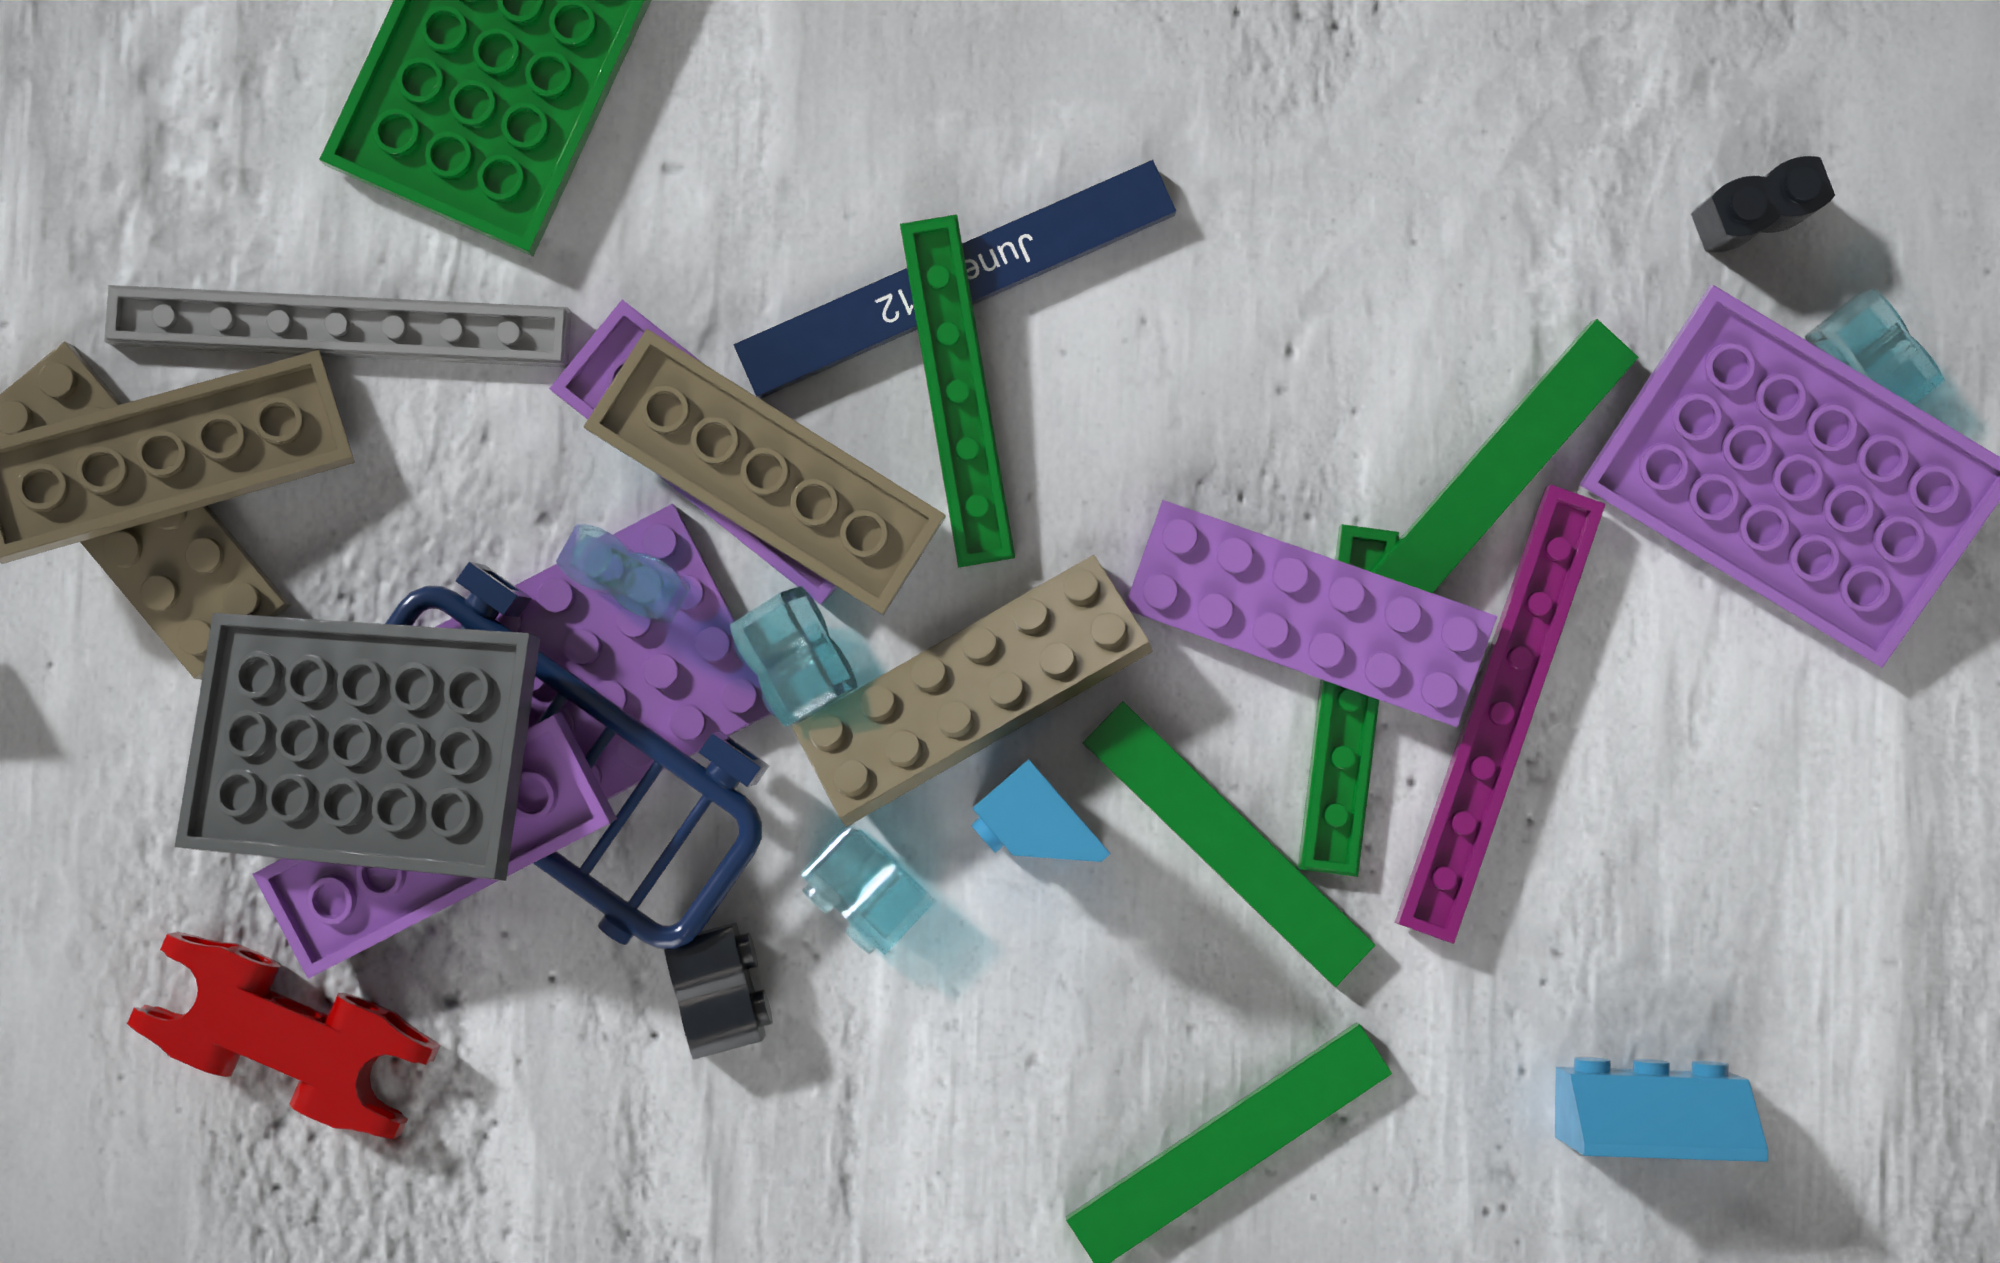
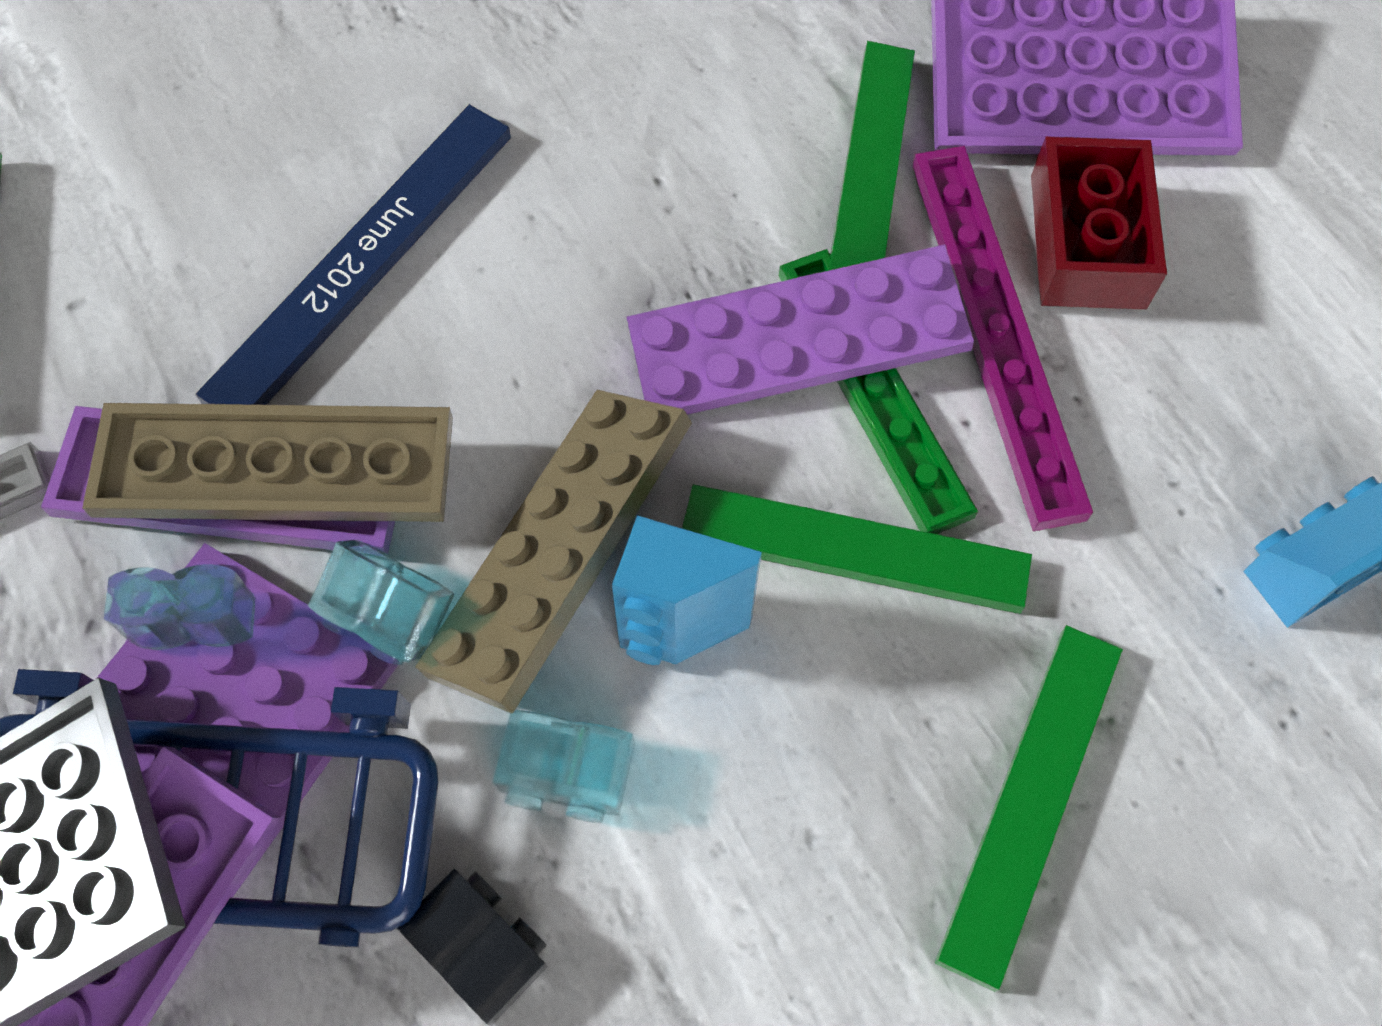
camera: 30 degrees left, 20 degrees down
(957, 390) = (411, 333): green tile -> none
(1668, 668) = (1097, 223): none -> dark red brick

